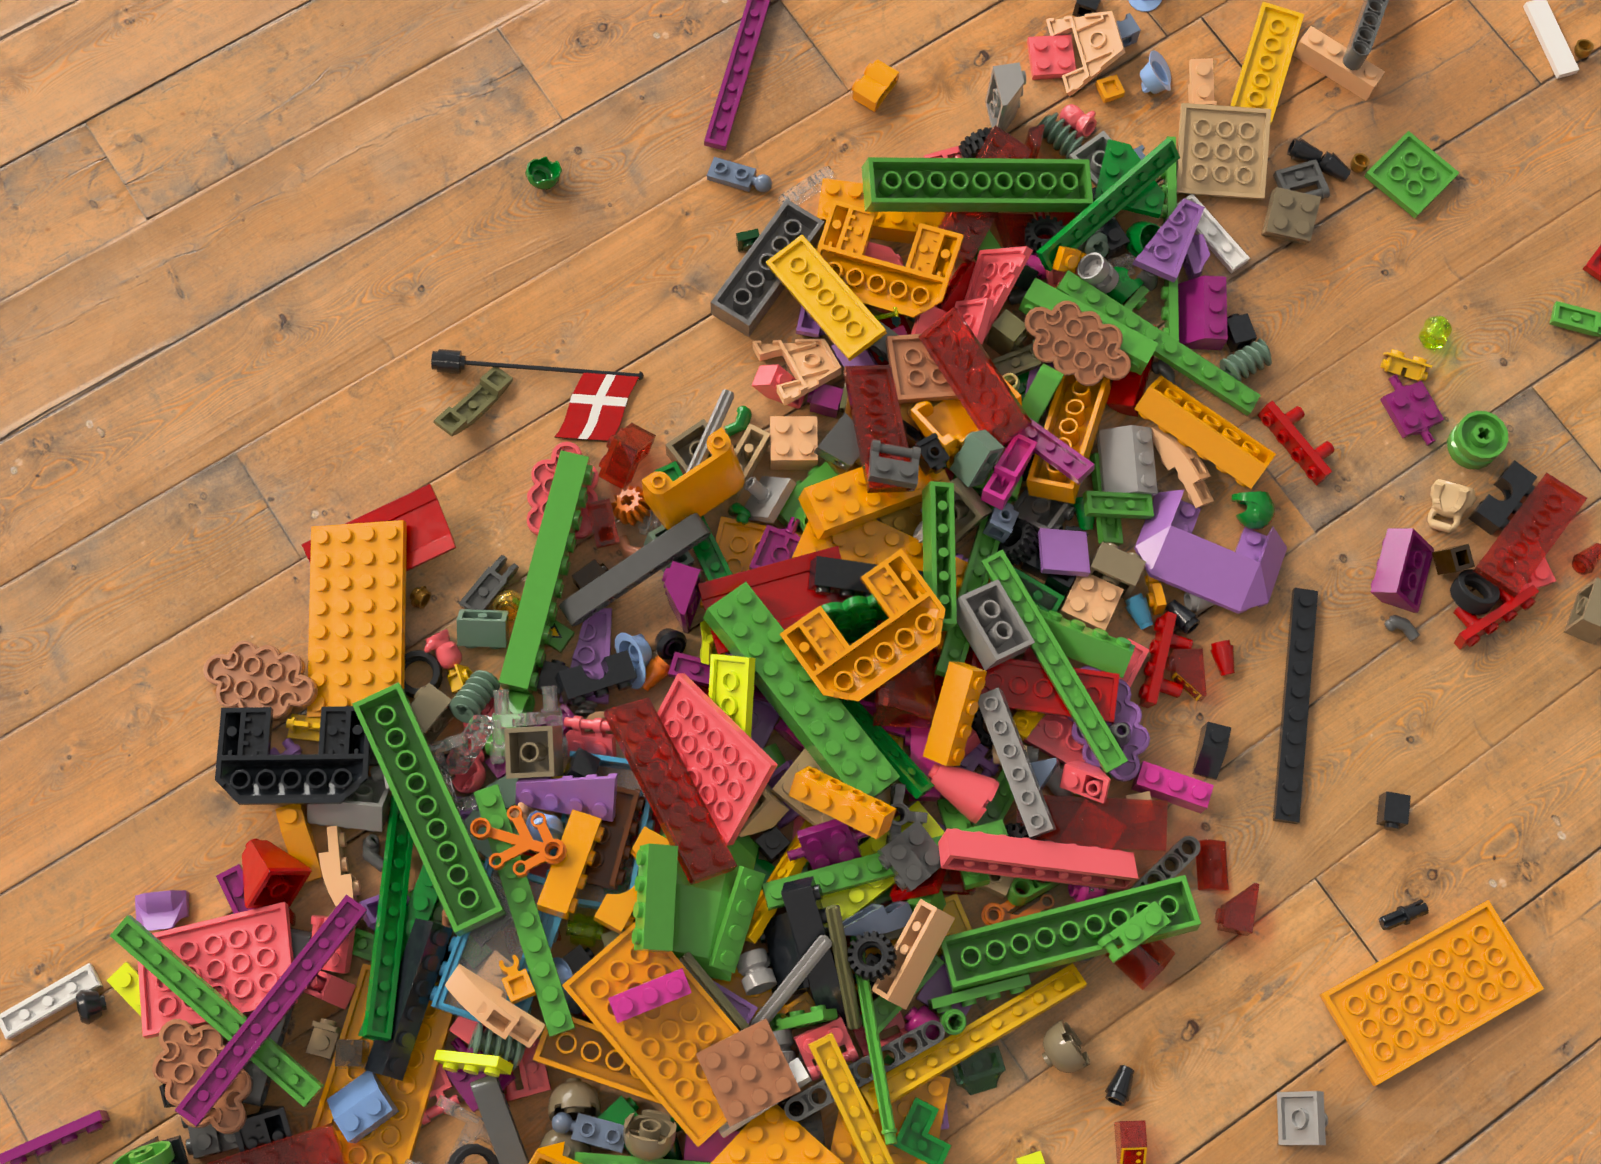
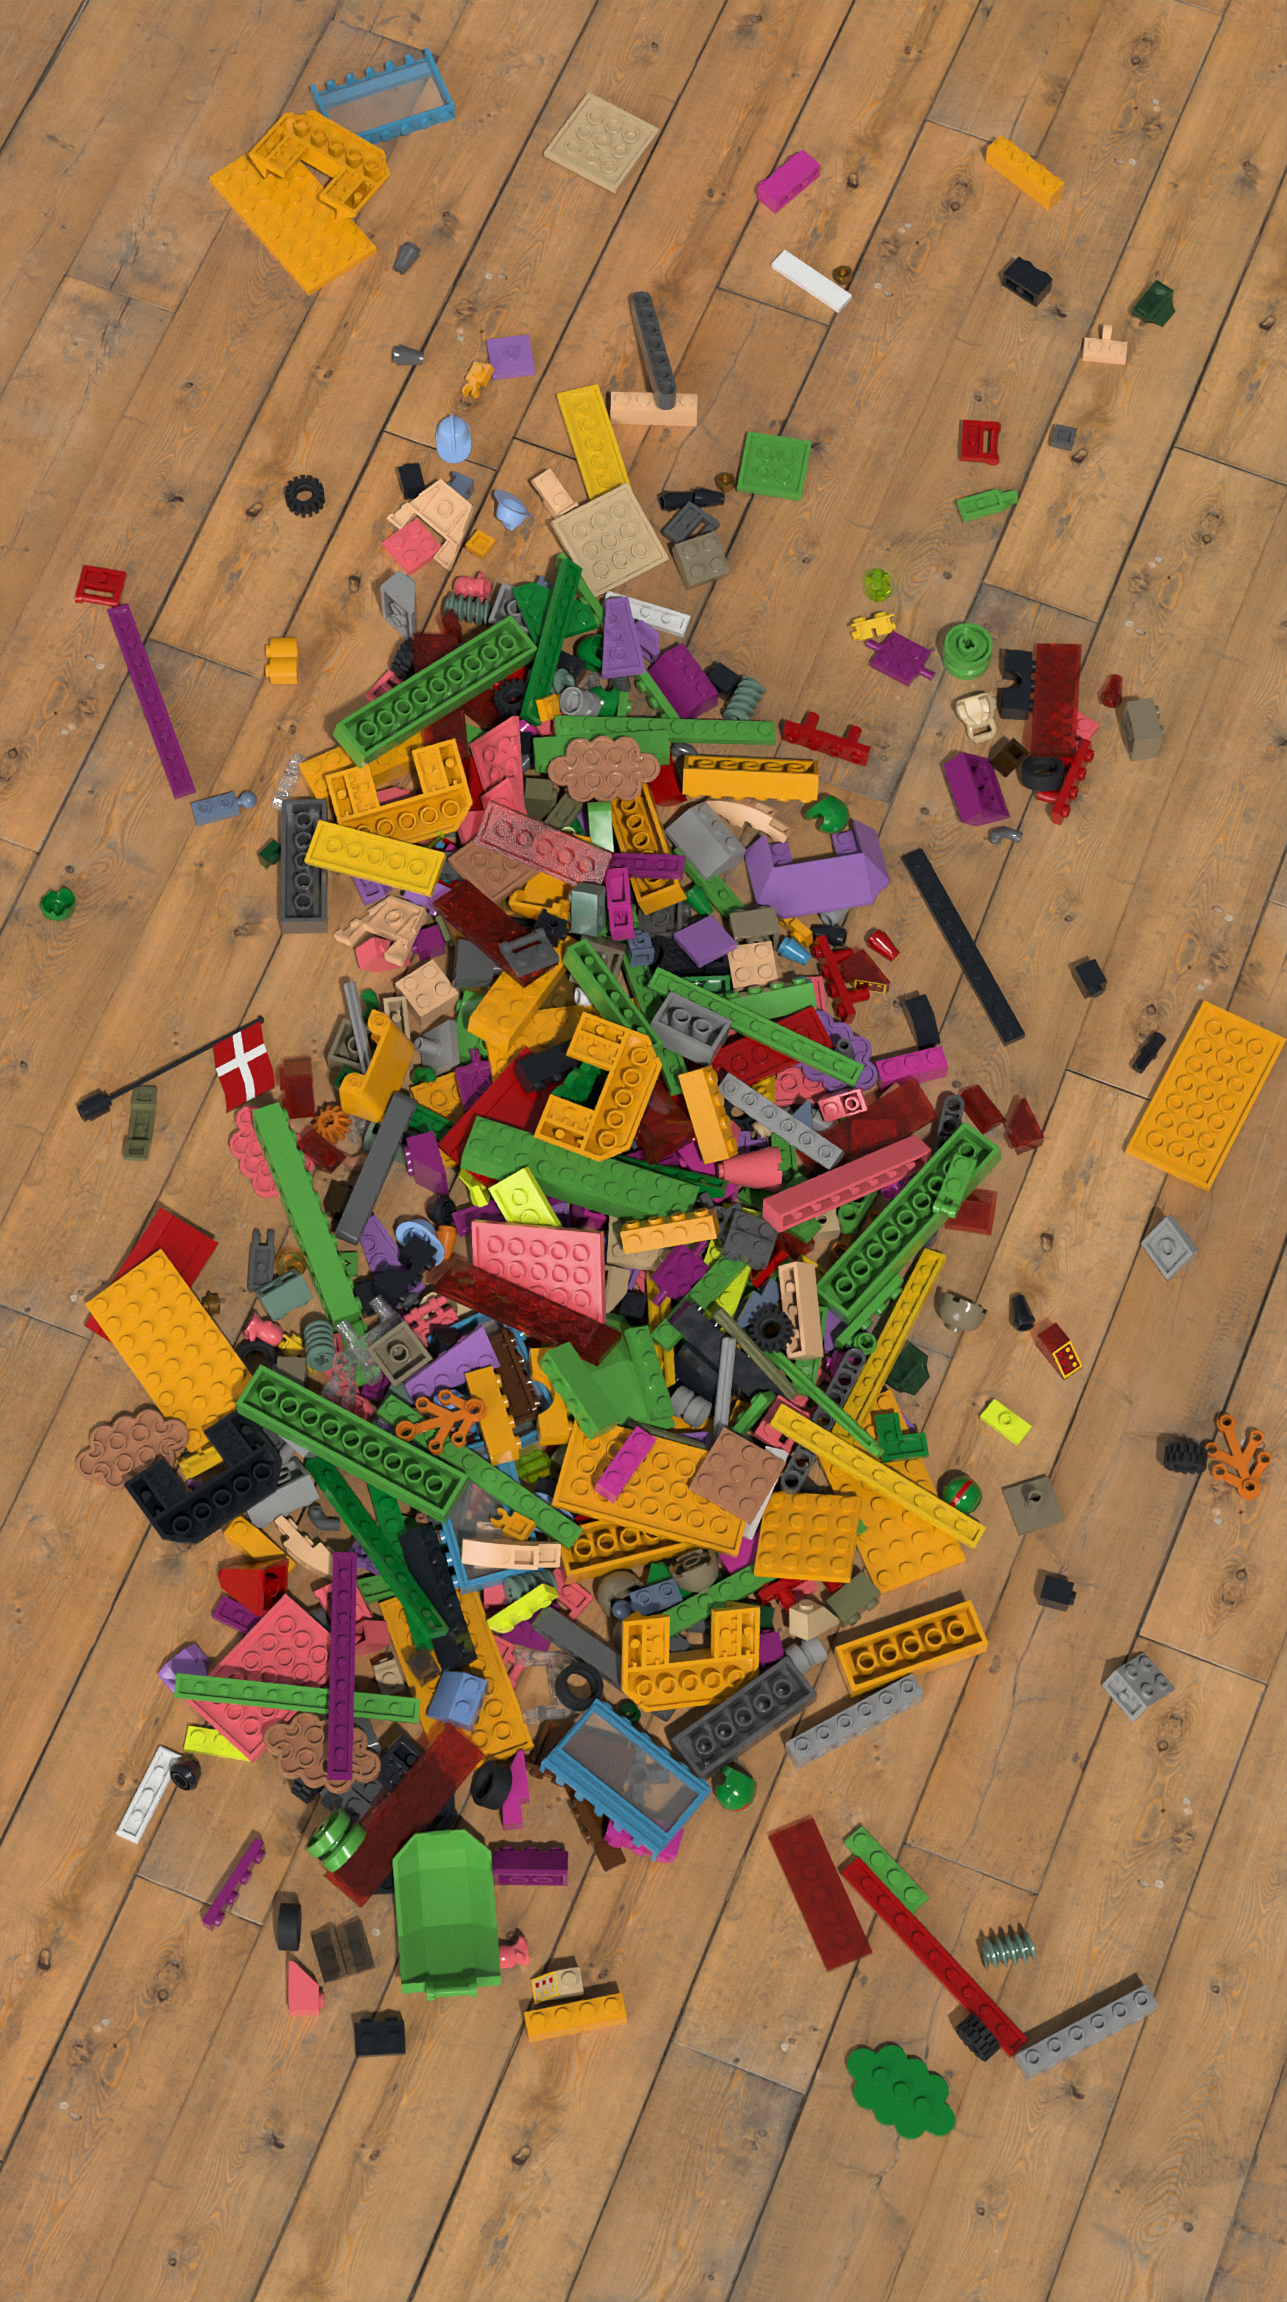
camera: 30 degrees left, 5 degrees down
(1118, 505) = (721, 878): bright green plate -> none

